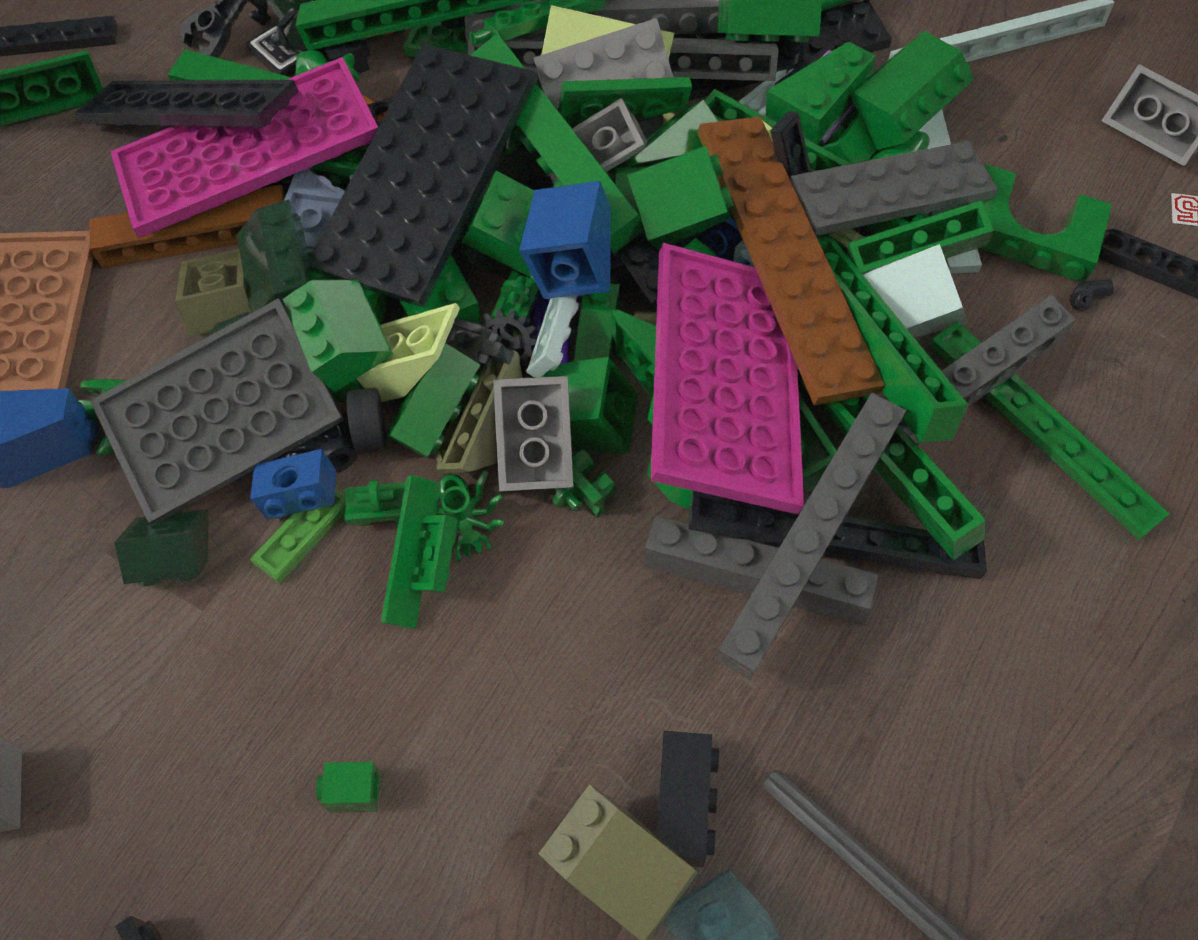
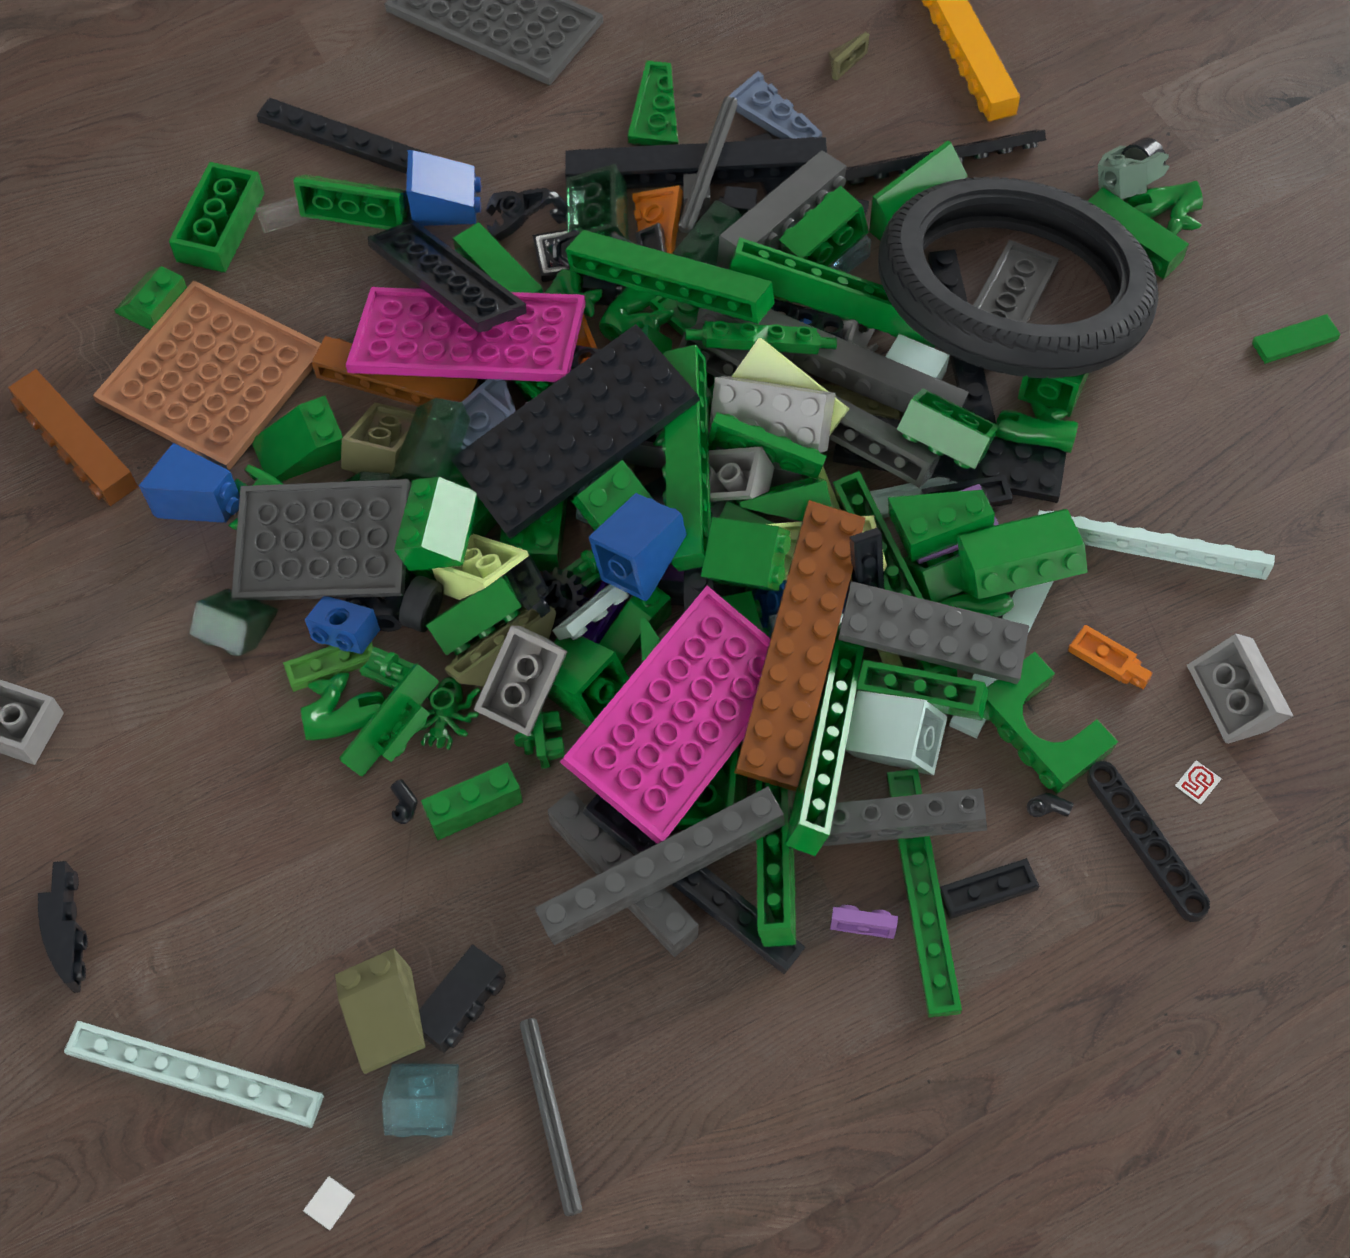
camera: 30 degrees right, 0 degrees up
(126, 330) = (300, 441): none -> green slope
(127, 40) = (442, 190): none -> slope
(349, 787) = (249, 860): green brick -> none
(366, 569) = (323, 723): none -> green piece
(384, 65) = (624, 314): none -> green piece
(483, 627) = (407, 802): none -> black arm
(554, 586) = (472, 801): none -> green brick
(1027, 481) = (874, 923): none -> medium lavender plate
(1039, 144) = (1109, 657): none -> orange hinge
(1098, 391) = (988, 888): none -> black tile

